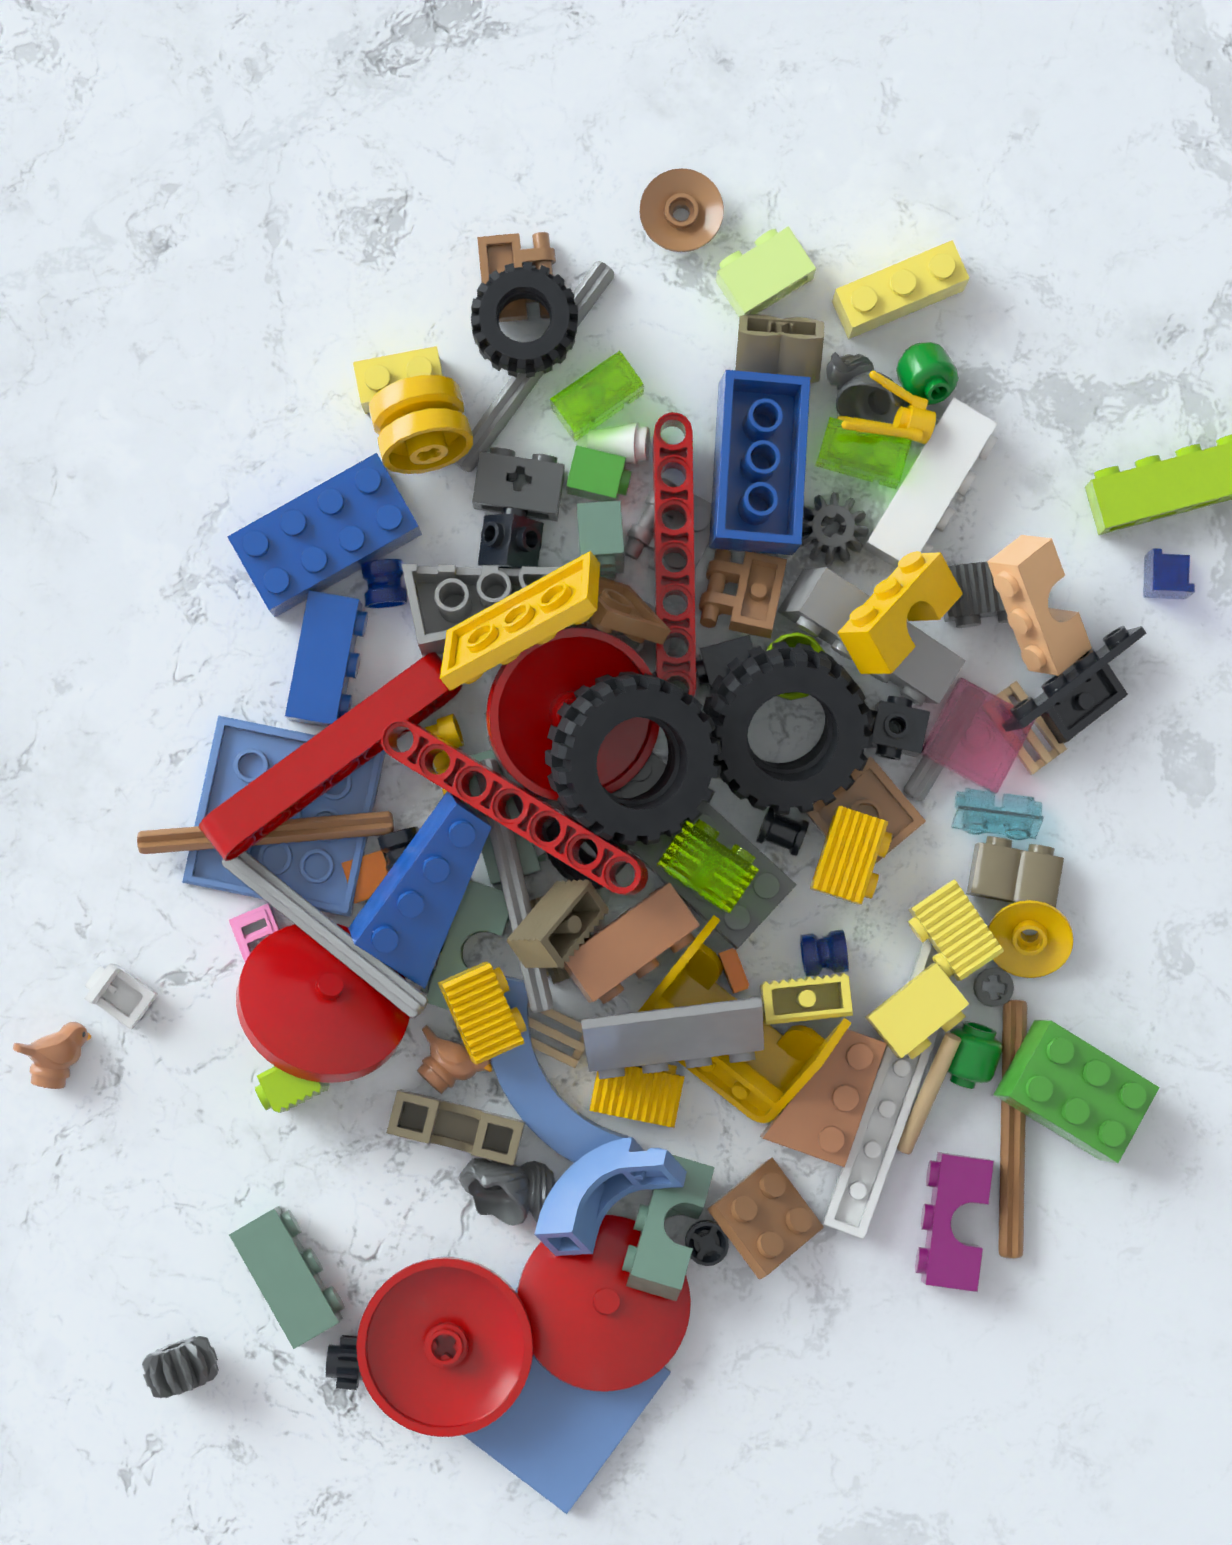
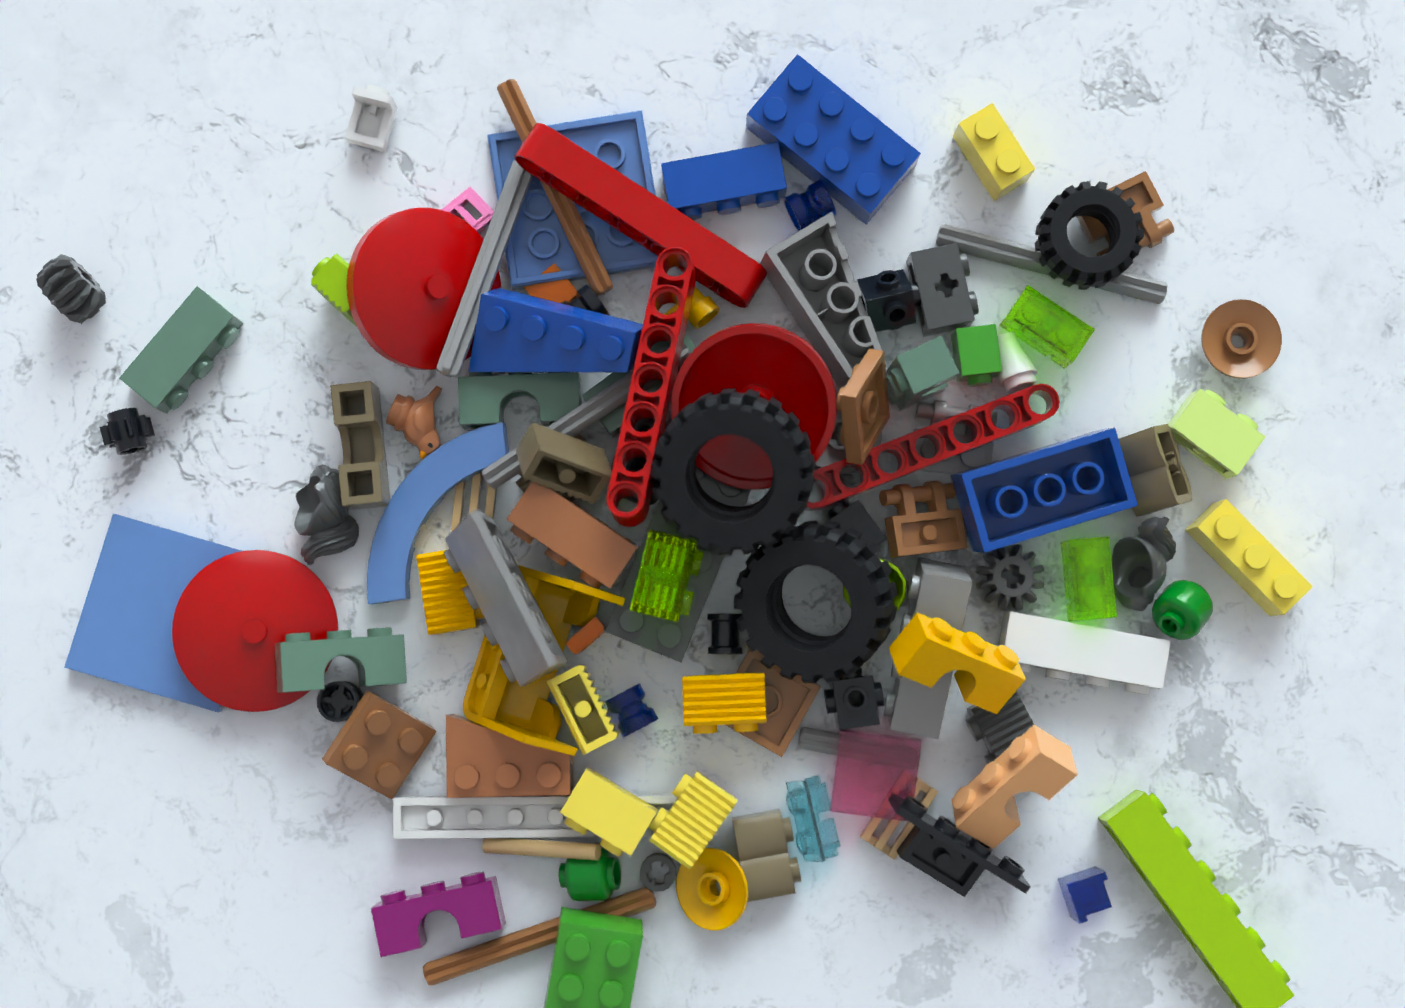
camera: 70 degrees right, 0 degrees up
(54, 1055) = (299, 83): nougat animal -> none
(420, 424) = (960, 181): yellow wheel -> none
(445, 1346) = (164, 506): red dish -> none
(482, 1011) = (464, 428): yellow brick -> none
(521, 621) = (817, 327): yellow plate -> none
(593, 1185) = (351, 582): medium blue arch -> none
(910, 423) = (1132, 610): yellow plant -> none

